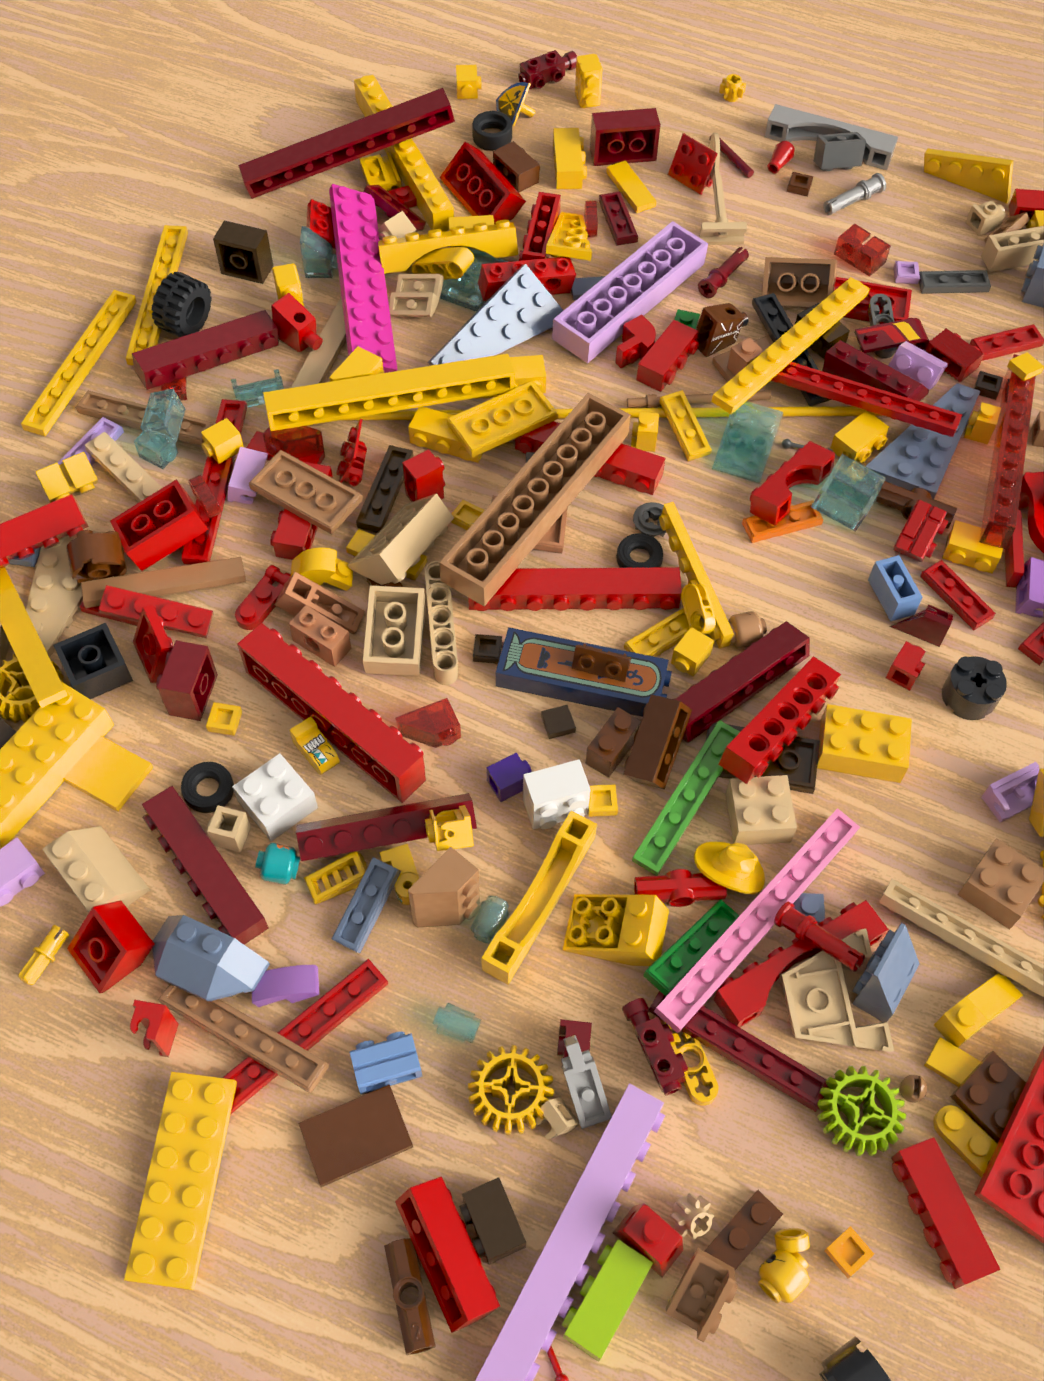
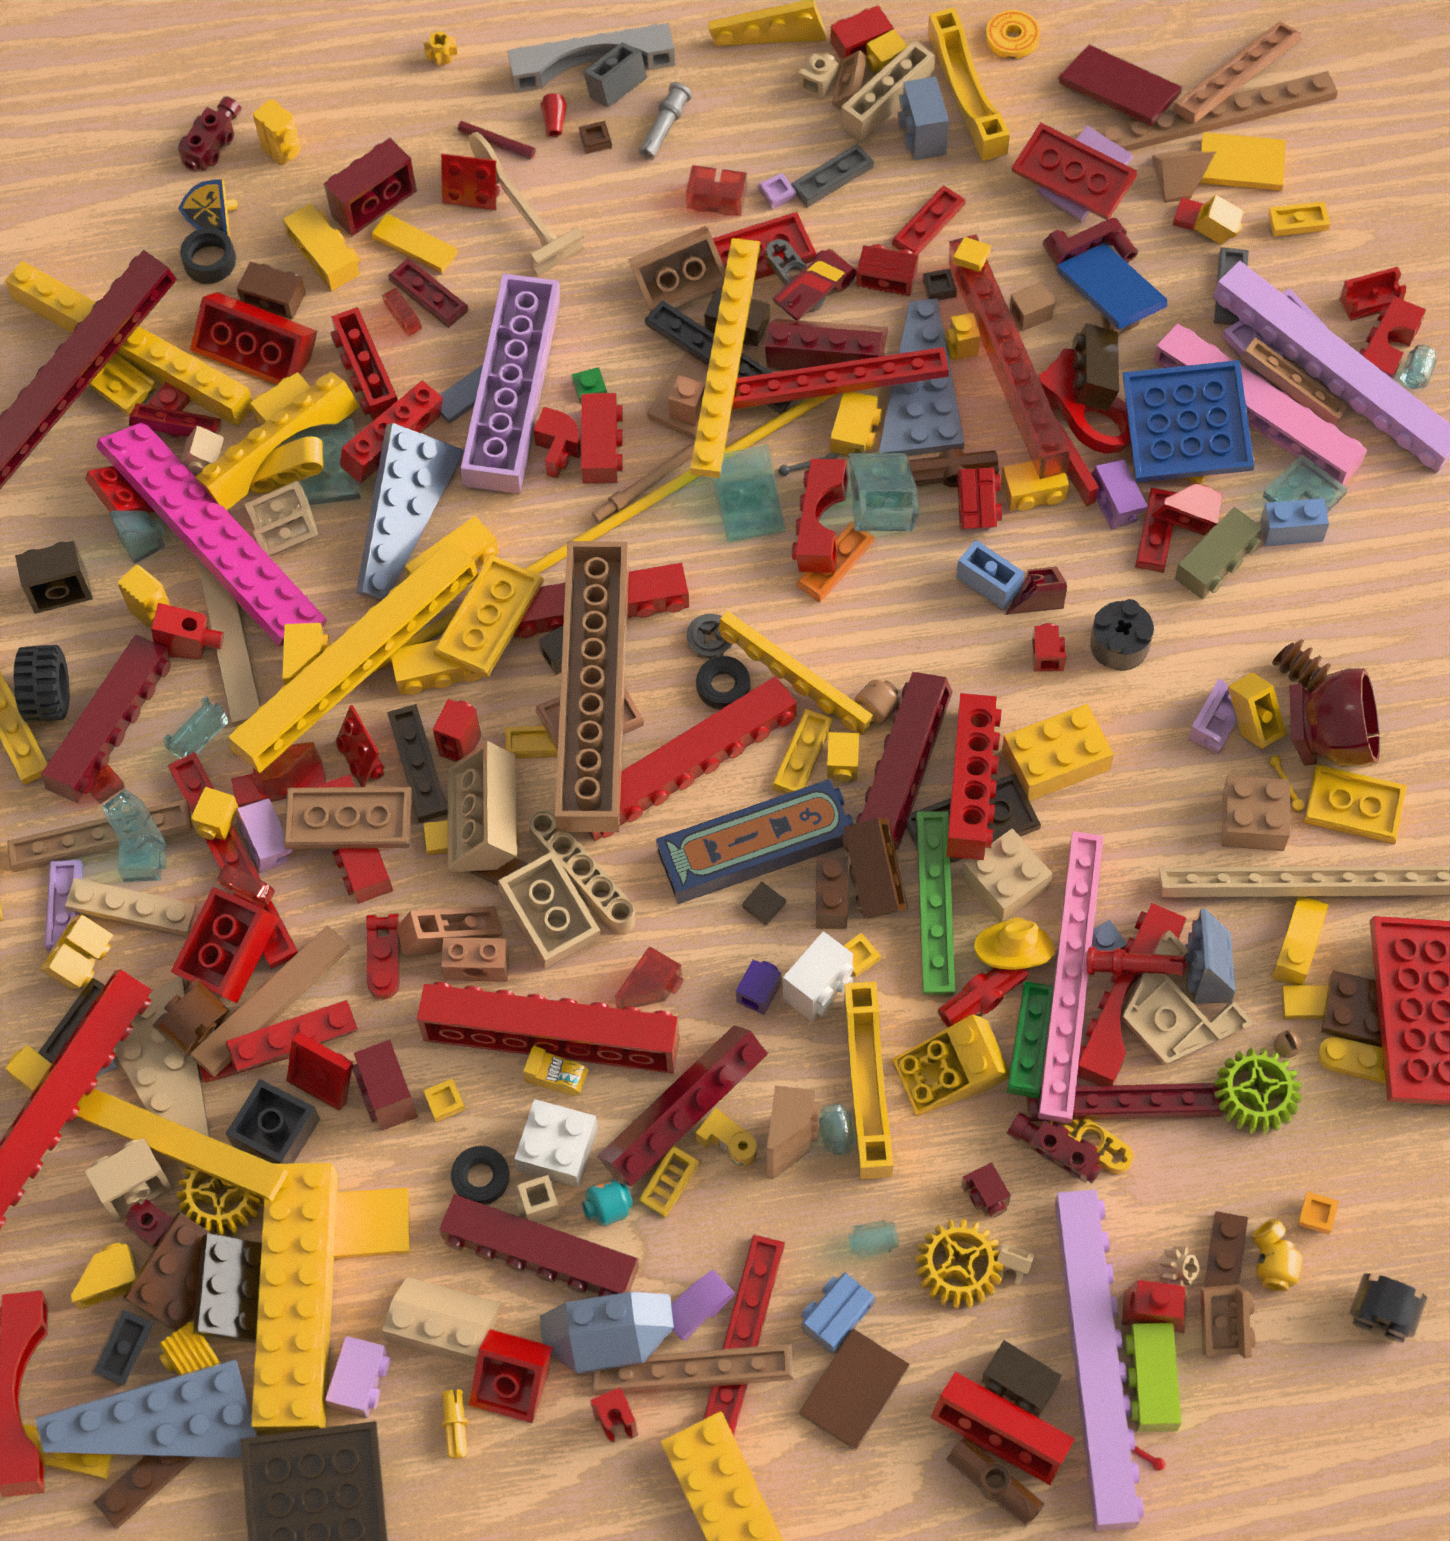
camera: 30 degrees left, 5 degrees up
(322, 566) = (422, 889): yellow brick -> none
(366, 905) = (718, 1187): sand blue tile -> none
(450, 829) = (756, 1069): yellow hinge -> none
(467, 82) = (131, 204): yellow brick -> none
(487, 648) = (644, 871): dark brown tile -> none
(569, 238) = (403, 355): yellow wing -> none
(584, 1085) = (1021, 1218): light grey hinge -> none
(601, 663) = (780, 819): reddish brown hinge -> none
(645, 432) = (641, 542): yellow brick -> none
(685, 425) = (672, 510): yellow tile -> none
(698, 604) = (818, 704): yellow piece -> none
(718, 277) = (588, 309): dark red pin -> none
(719, 327) = (638, 365): reddish brown torso -> none
(918, 364) = (861, 305): lavender brick -> none
(944, 1213) = (1372, 1131): red brick -> none
(957, 594) = (1048, 543): red tile -> none

